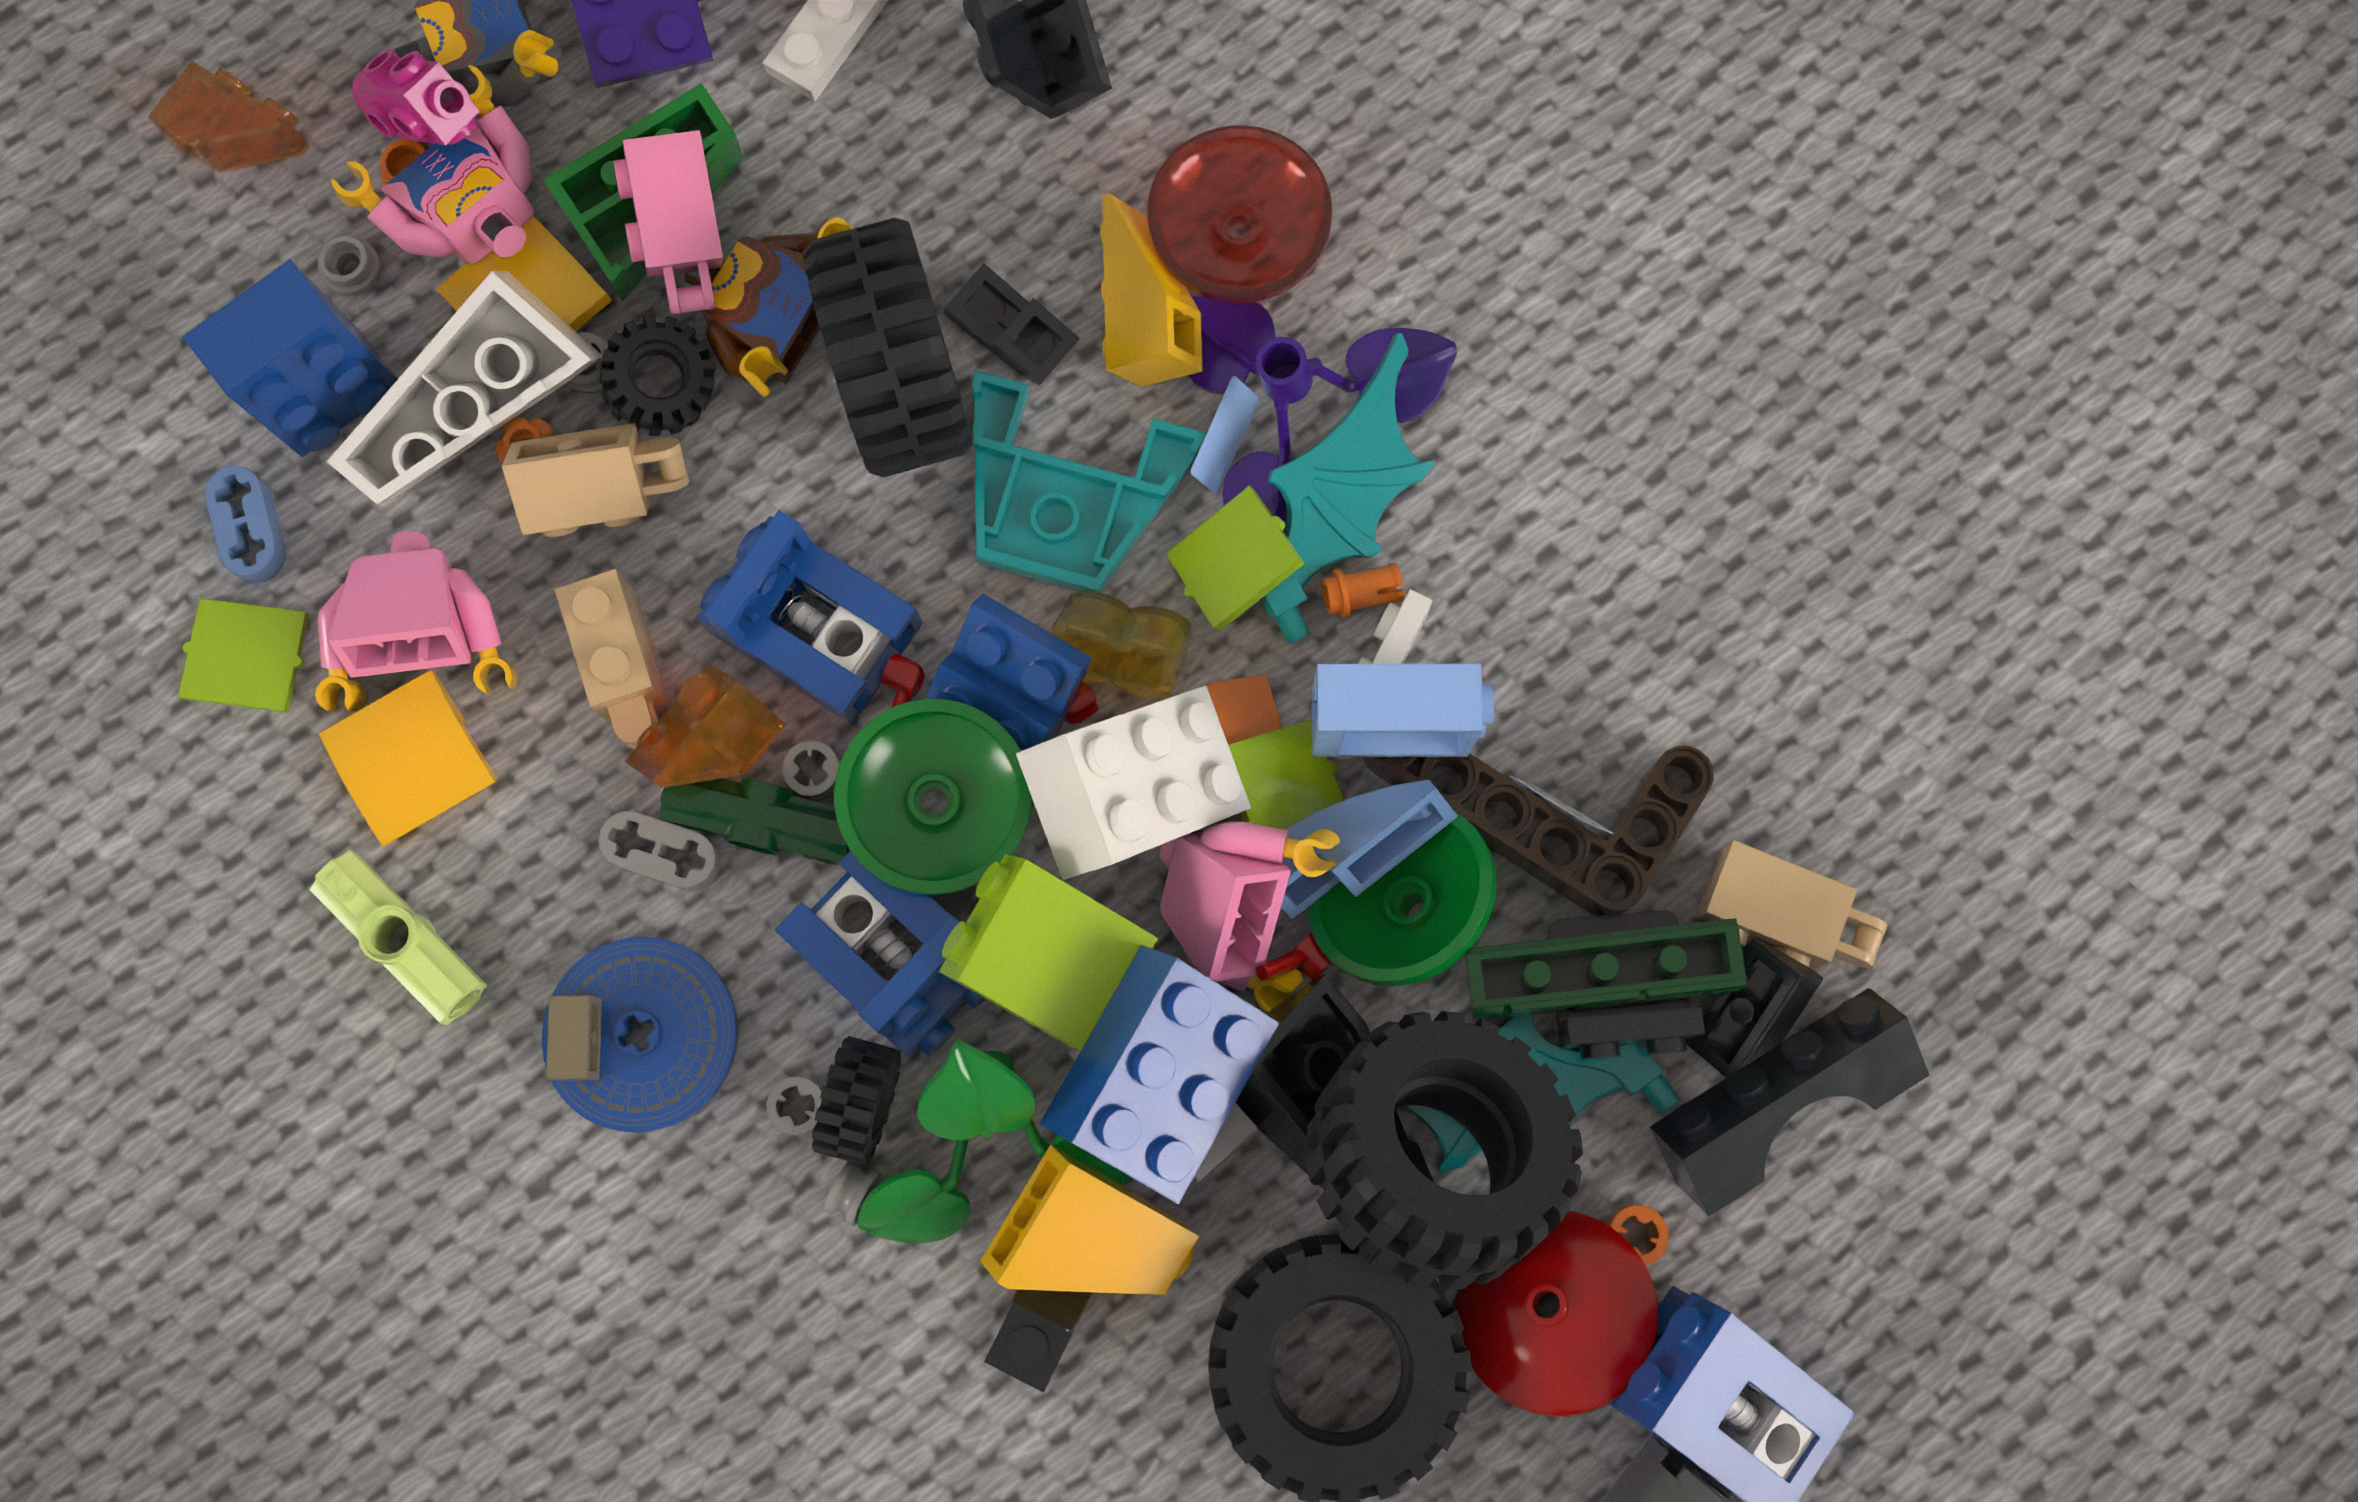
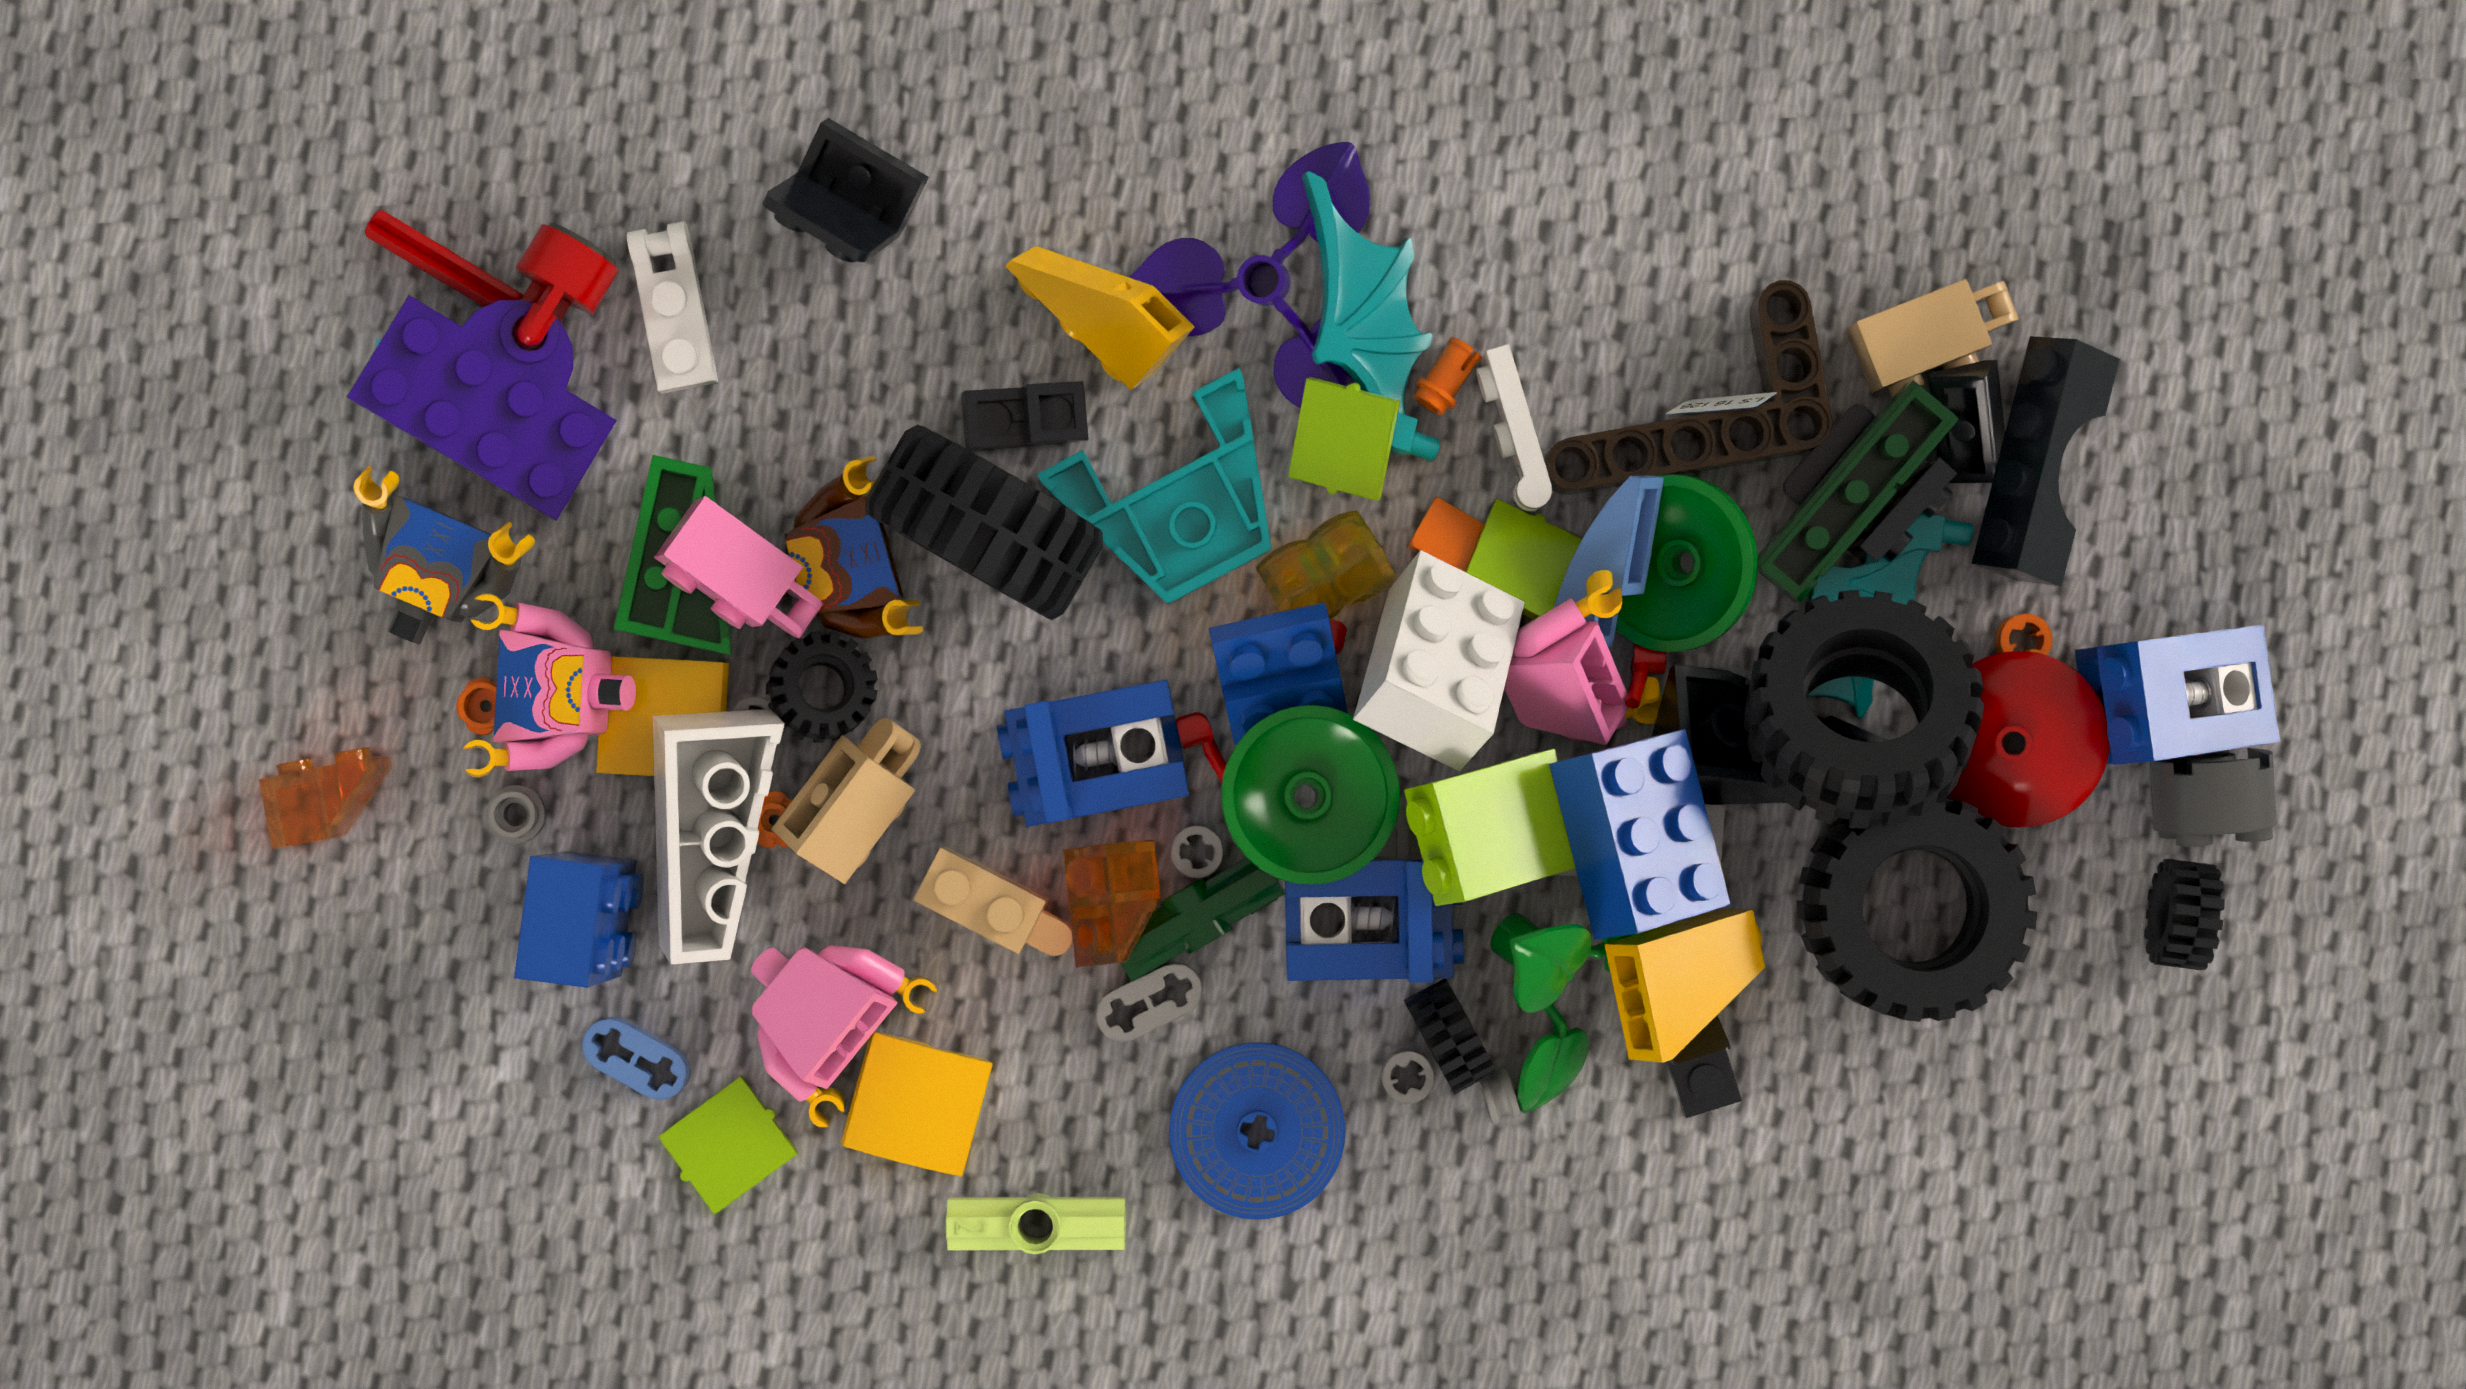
camera: 45 degrees left, 10 degrees up
(405, 99) = (456, 660): dark pink brick -> none
(574, 1038) = (1223, 1174): dark tan piece -> none
(1224, 435) = (1249, 355): light blue sticker -> none
(1247, 180) = (1110, 148): clear red dish -> none
(1399, 710) = (1569, 449): light blue window -> none

